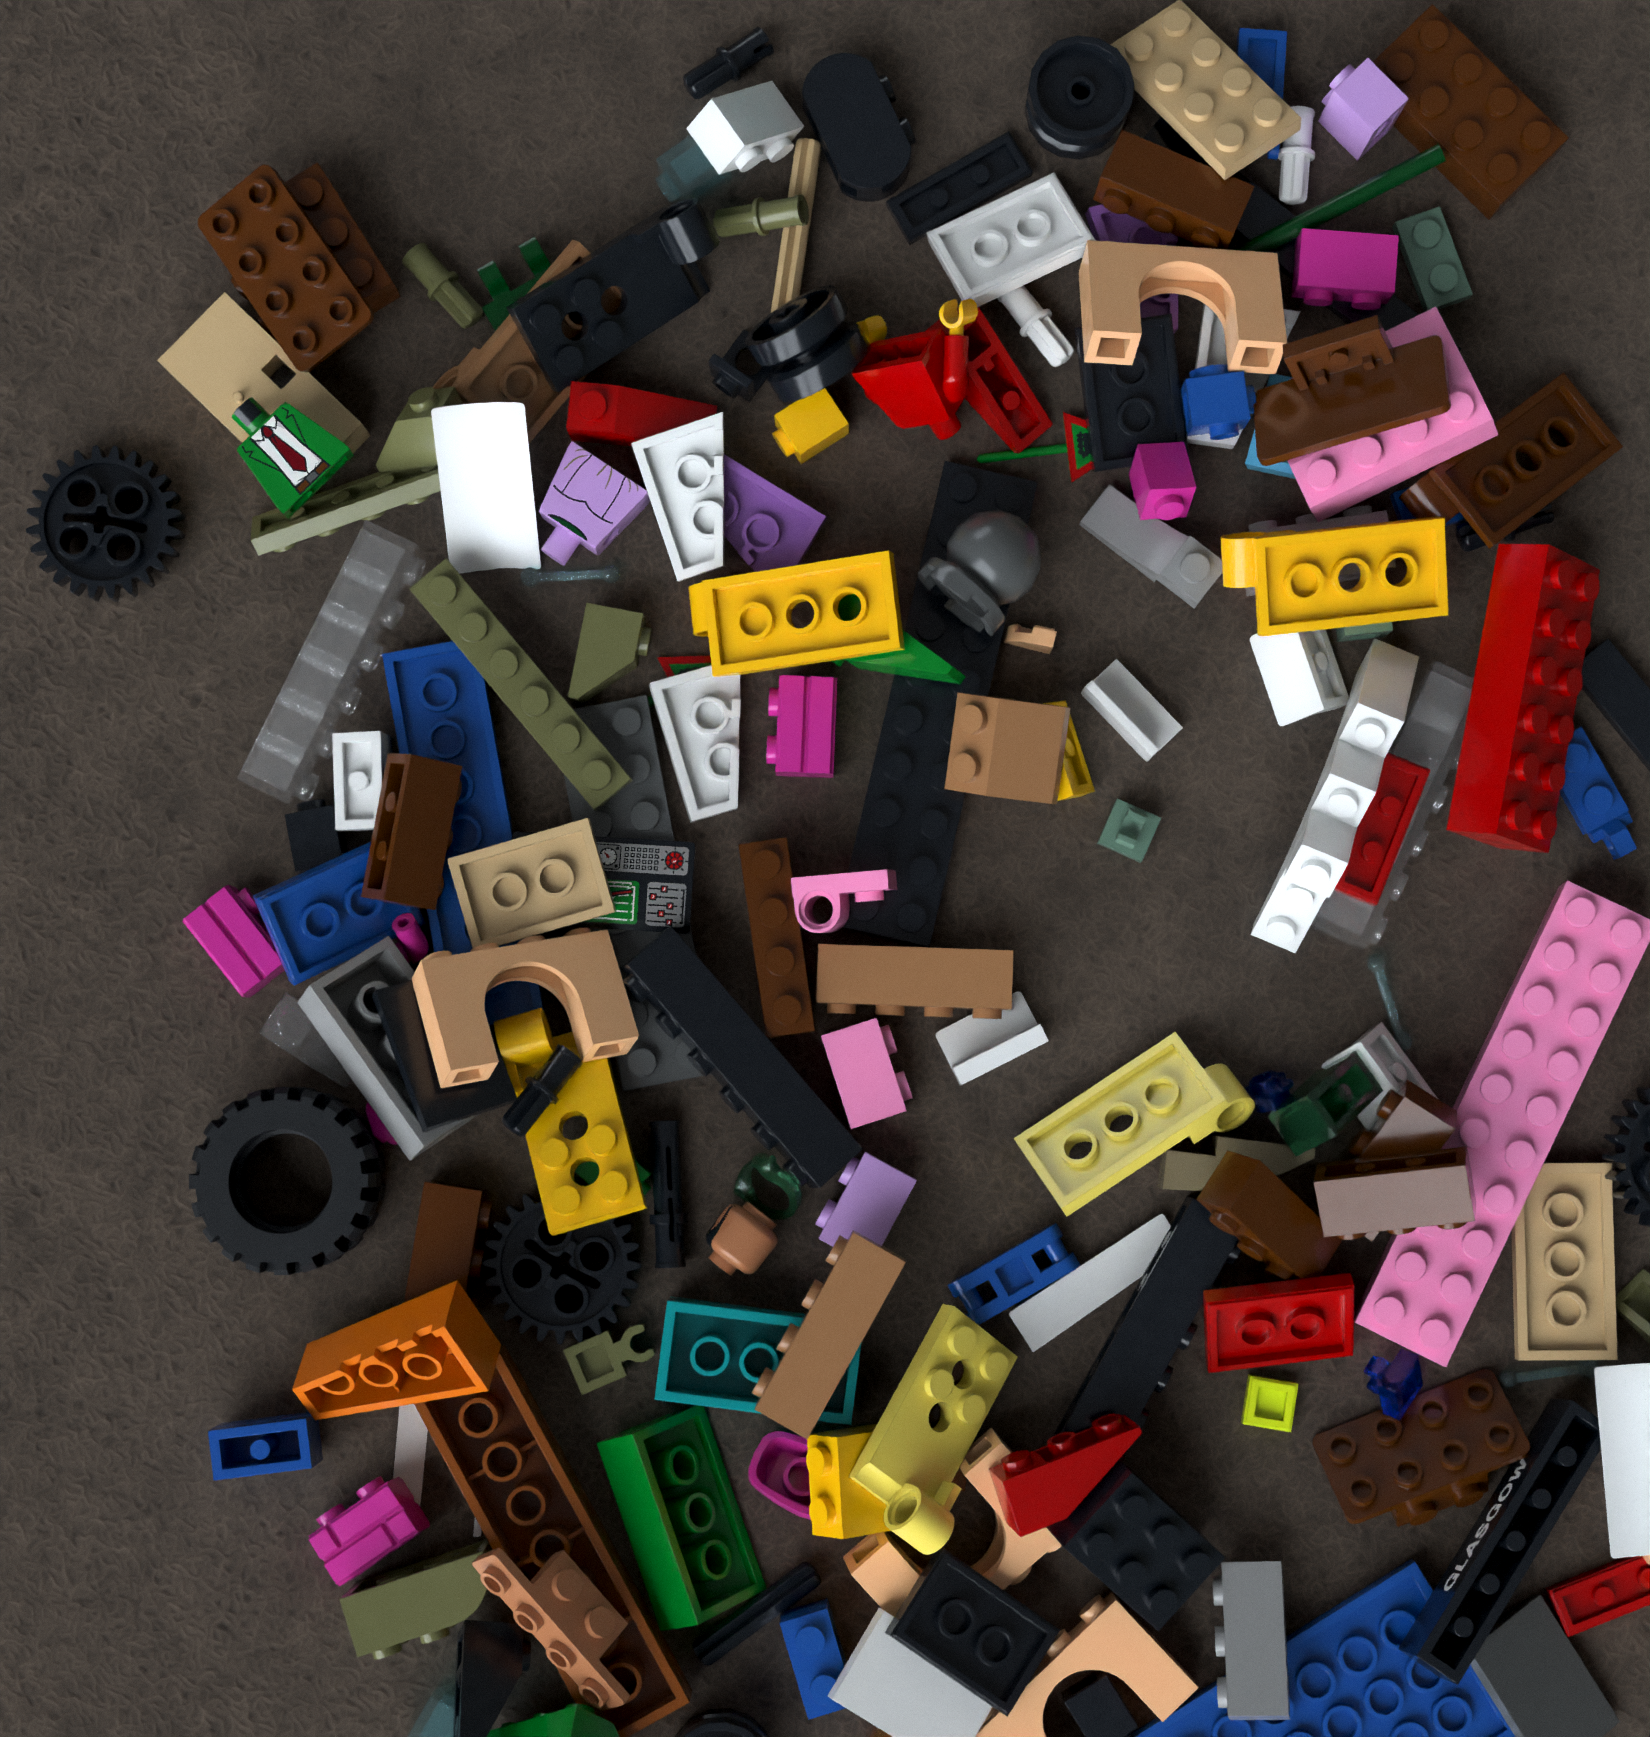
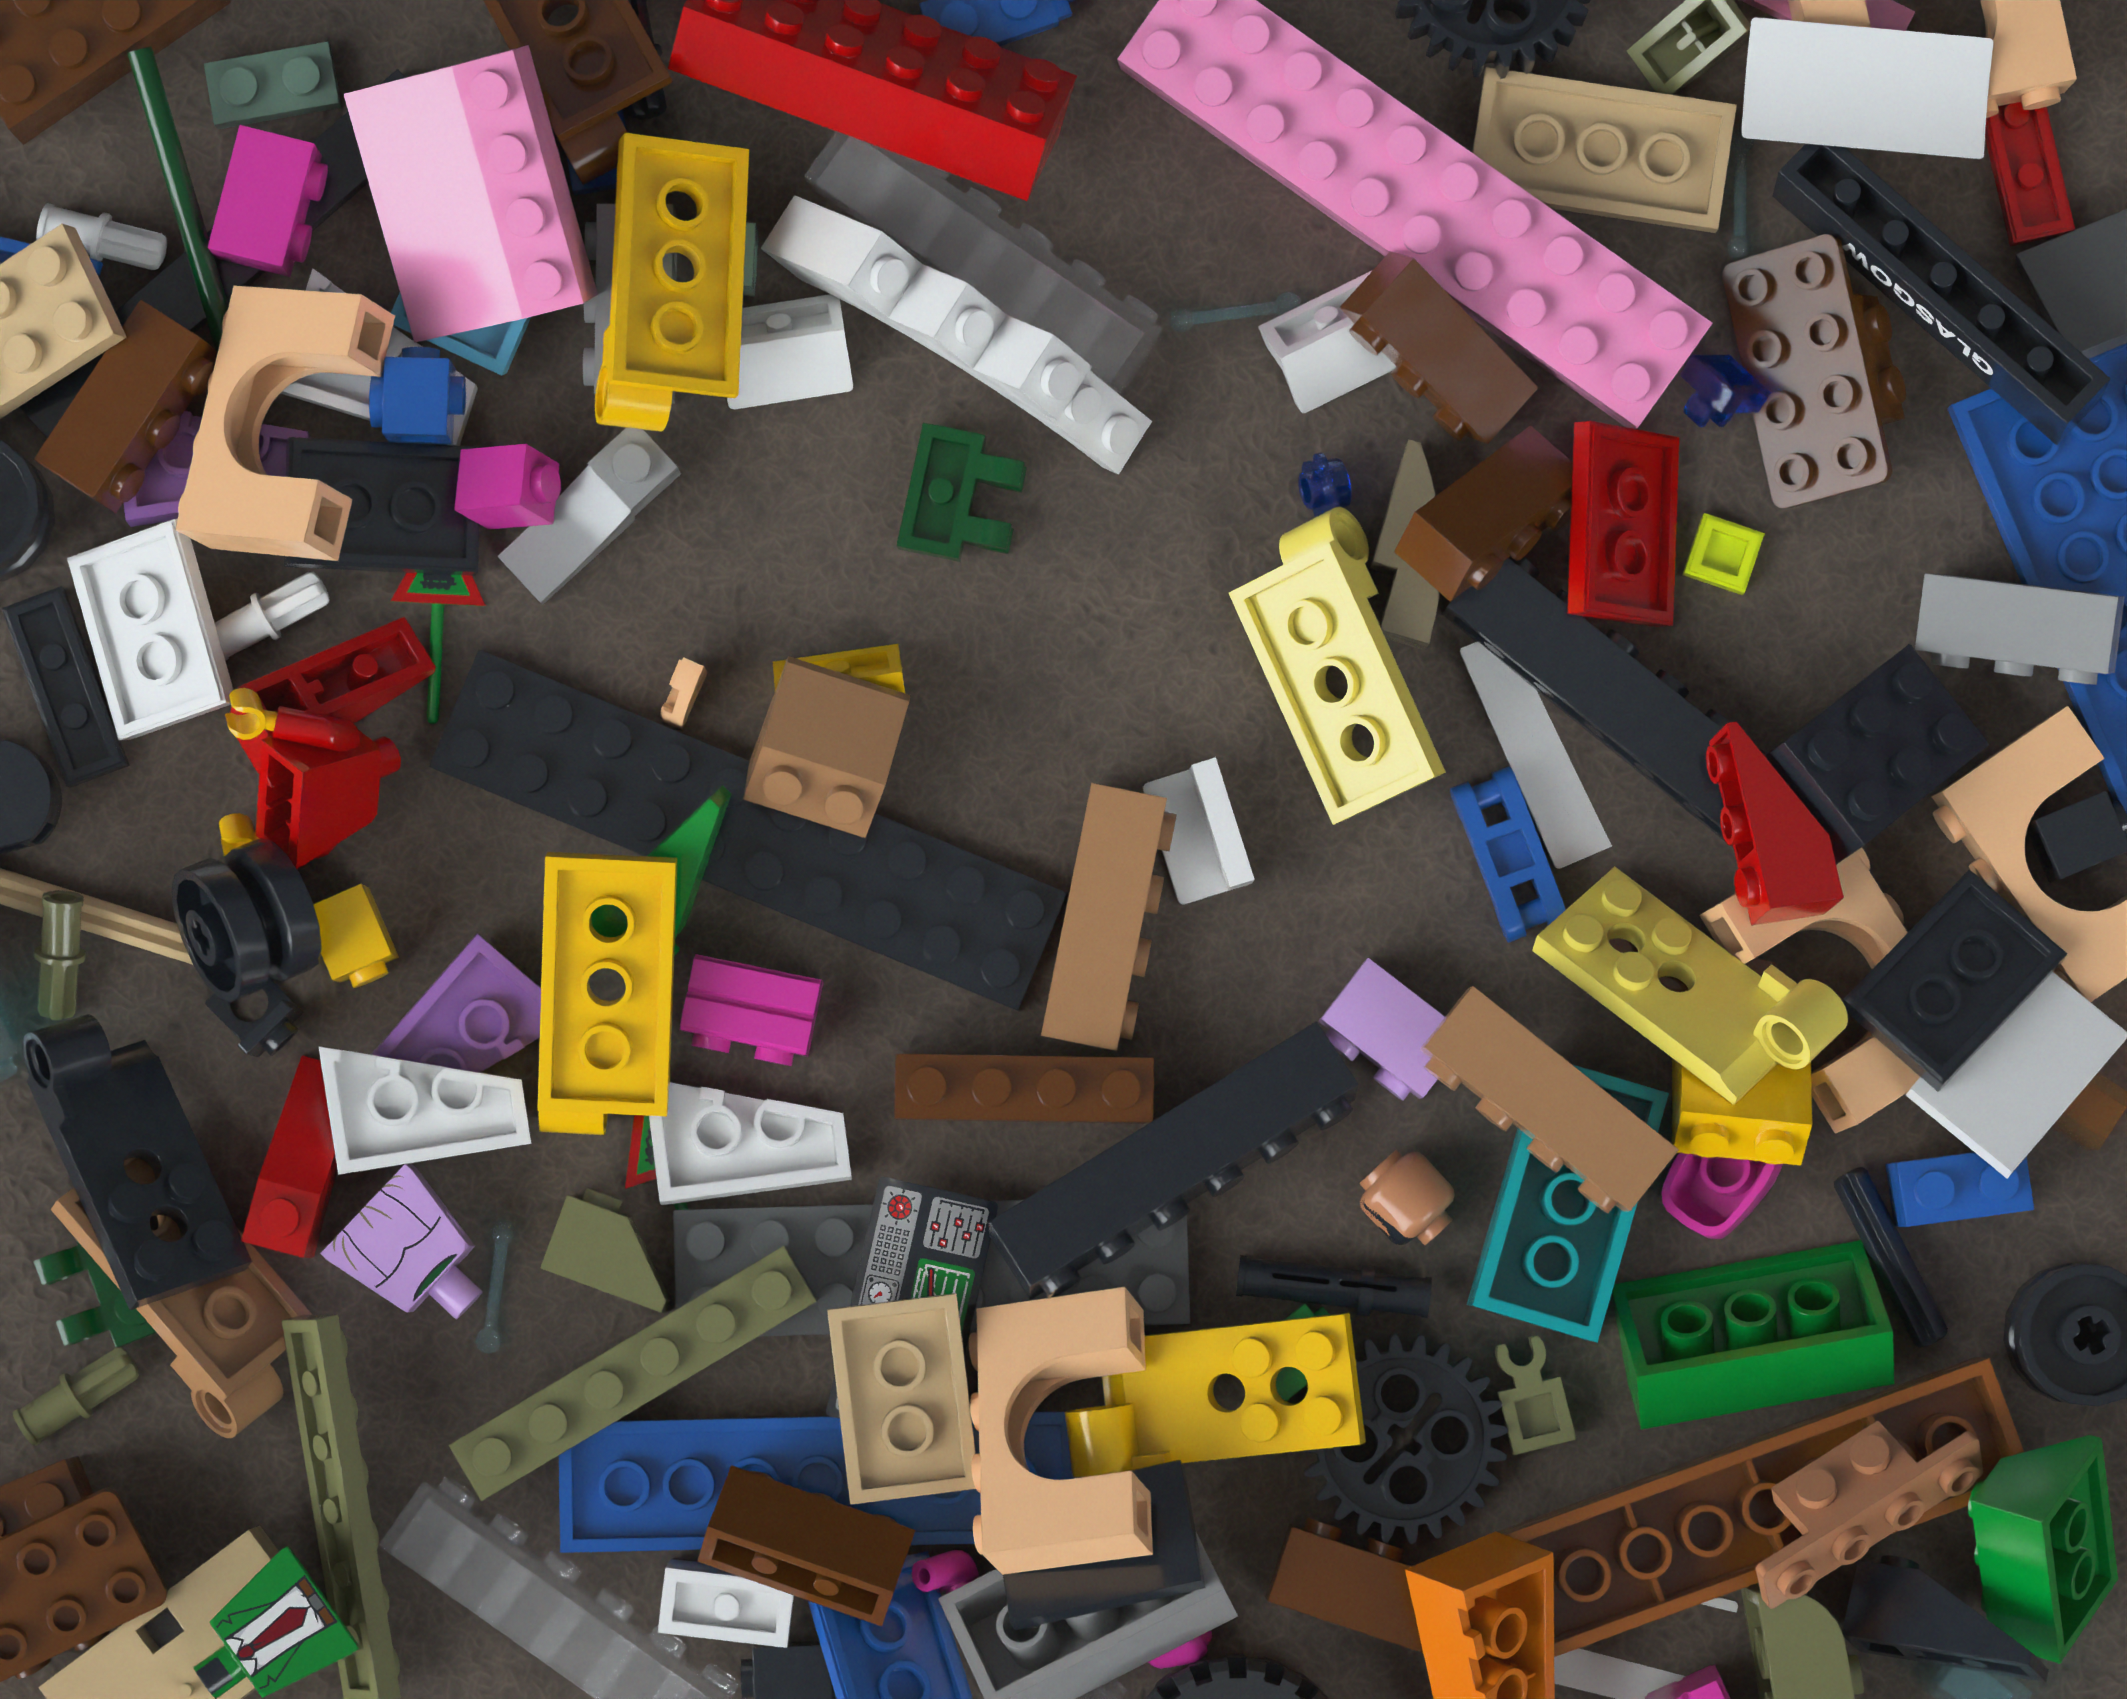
camera: 90 degrees left, 0 degrees up
(412, 436) = (276, 1442): olive slope -> none
(486, 486) = (363, 1375): white sticker -> none
(541, 1090) = (1174, 1426): black axle -> none
(770, 1170) = (1324, 1146): clear green piece -> none
(836, 887) = (971, 1000): bright pink plate -> none
(865, 1072) = (1218, 1001): bright pink brick -> none
(988, 565) = (583, 731): dark grey tile -> none
(1128, 830) = (957, 608): sand green tile -> none
(1131, 710) = (800, 578): white panel -> none
(1213, 805) = (943, 493): none -> dark green plate
(1325, 1103) = (1353, 416): clear green brick -> none
(1347, 389) = (438, 226): reddish brown bracket -> none
(1361, 107) = (57, 143): lavender brick -> none
(1382, 829) = (1013, 281): red tile -> none
(1395, 1193) = (1482, 348): brick -> none

